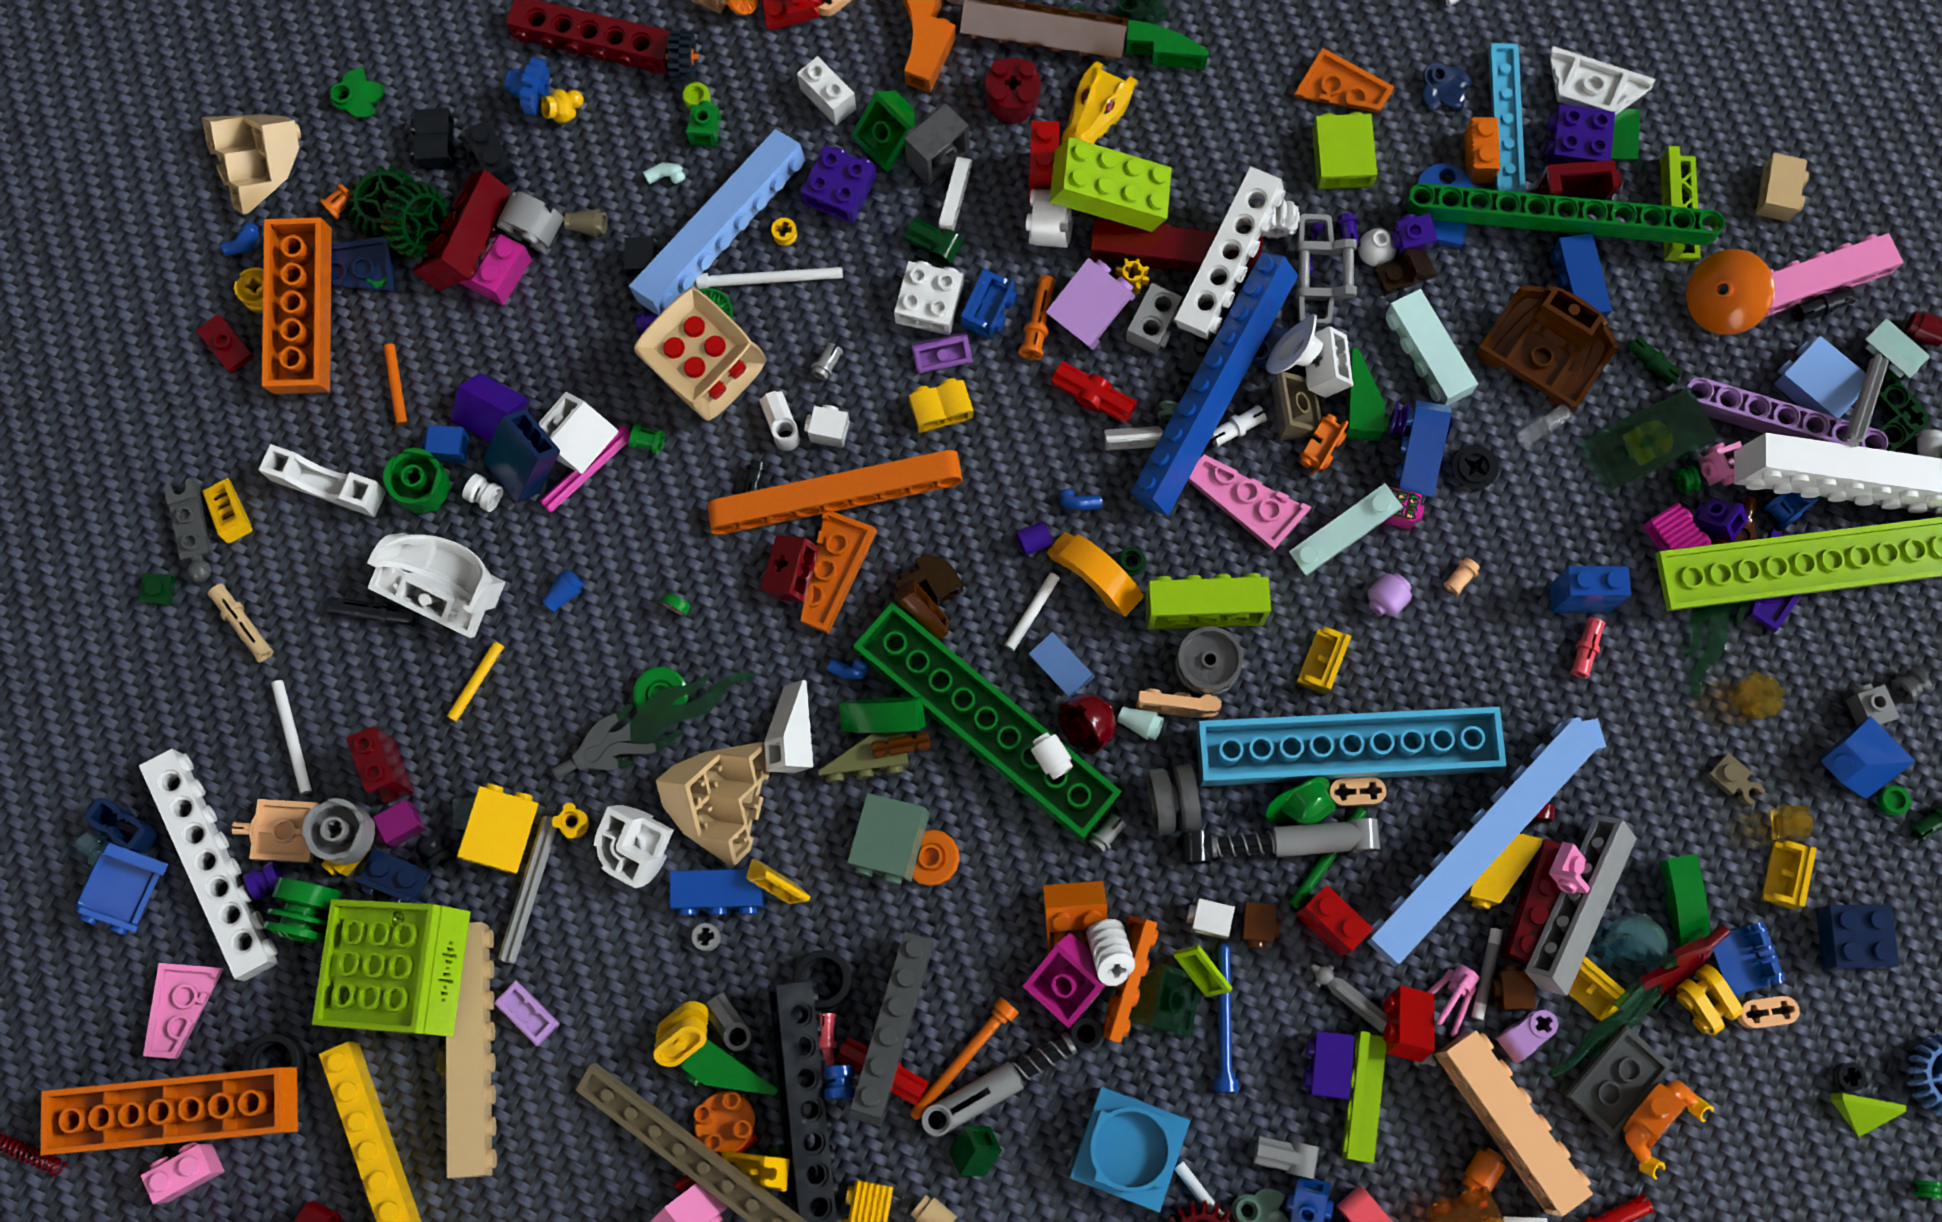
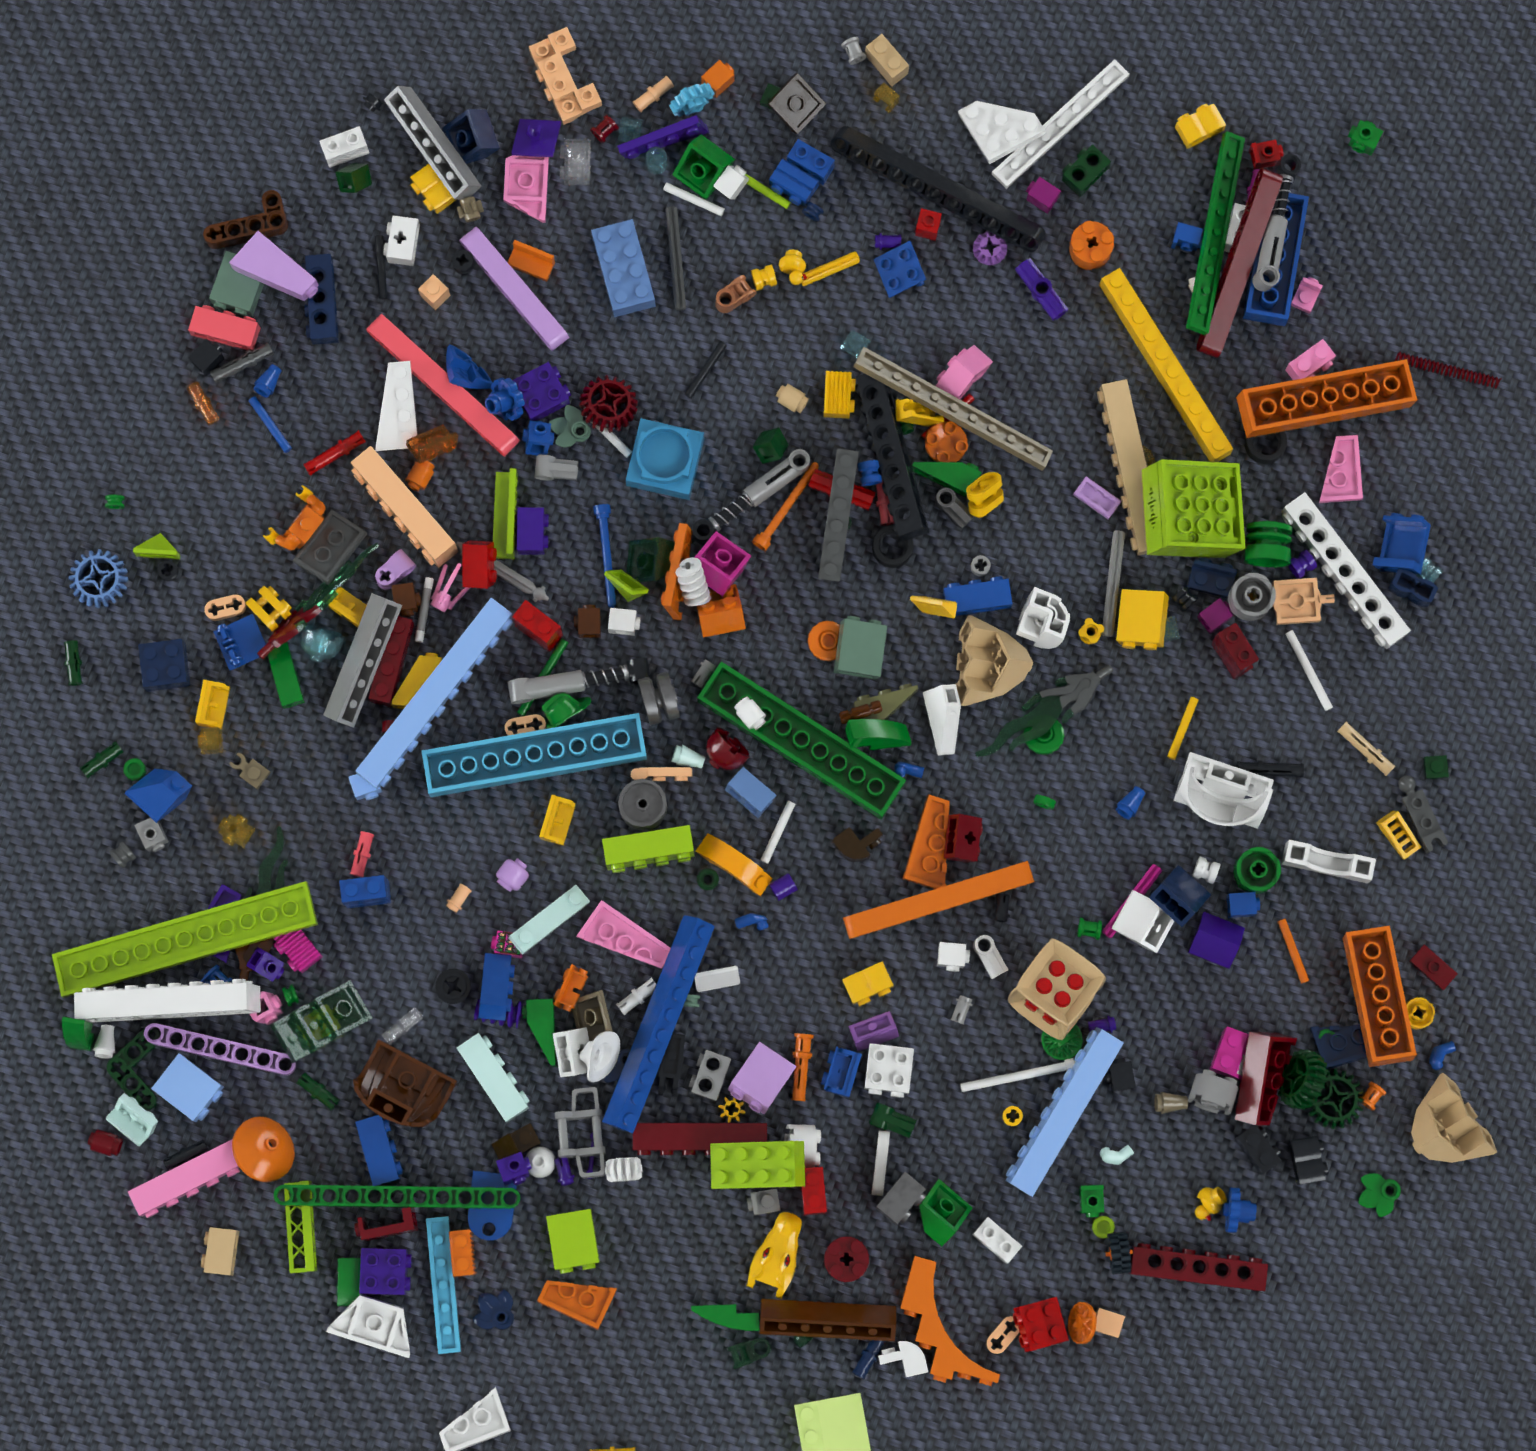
camera: 170 degrees right, 5 degrees up
(839, 184) = (974, 1158): dark purple brick -> none
(922, 609) = (858, 817): reddish brown brick -> none
(1093, 392) = (751, 1009): red piece -> none
(1255, 186) = (682, 1074): white brick -> none
(1568, 868) = (375, 680): bright pink bracket -> none
(1867, 400) = (162, 1060): light grey axle -> none

